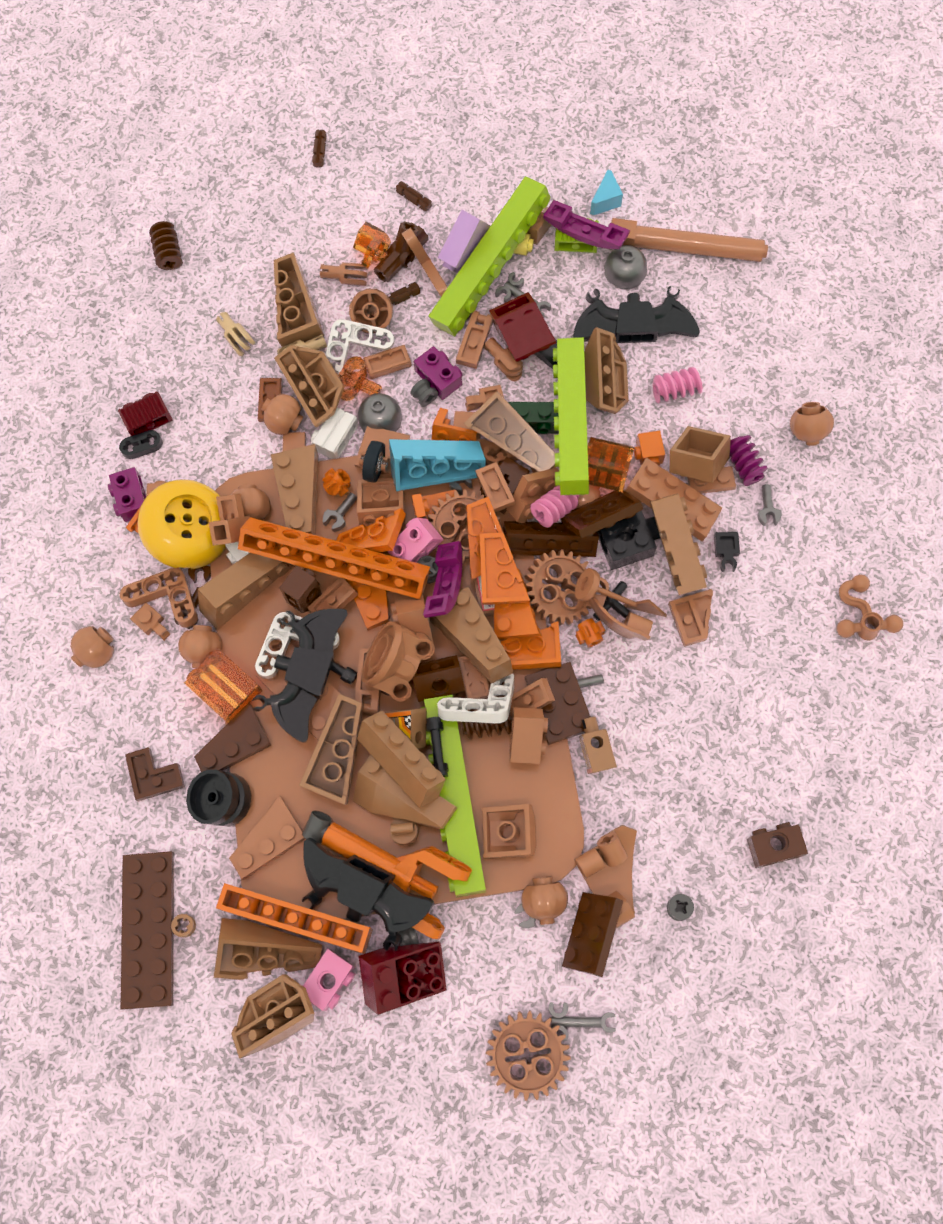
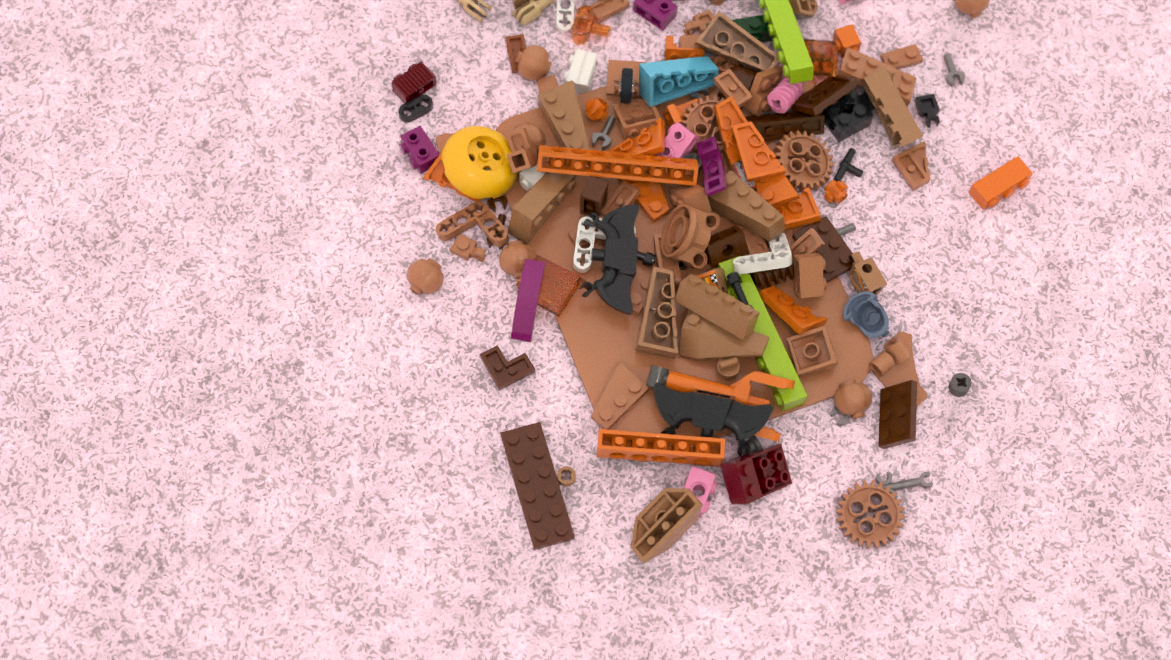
camera: 20 degrees left, 5 degrees down
(191, 699) = (527, 300): none -> magenta slope
(218, 798) = (570, 370): black wheel -> none
(234, 742) = (568, 329): reddish brown wing -> none
(254, 947) = (632, 480): medium nougat wedge -> none
(312, 381) = (553, 30): medium nougat wedge -> none
(380, 412) = (614, 47): flat silver cylinder -> none
(424, 392) = (647, 26): dark grey wheel -> none
(496, 776) = (795, 316): none -> orange wing
(588, 797) = (867, 314): none -> sand blue helmet
(589, 584) = (829, 151): nougat piece -> none
(632, 627) = (860, 182): nougat panel -> none
(699, 454) = (889, 37): medium nougat piece -> none
(745, 460) = (926, 37): magenta piece -> none
(790, 837) = (1016, 333): reddish brown brick -> none
(792, 658) = (1001, 183): none -> orange brick
(847, 628) = (1037, 152): nougat piece -> none

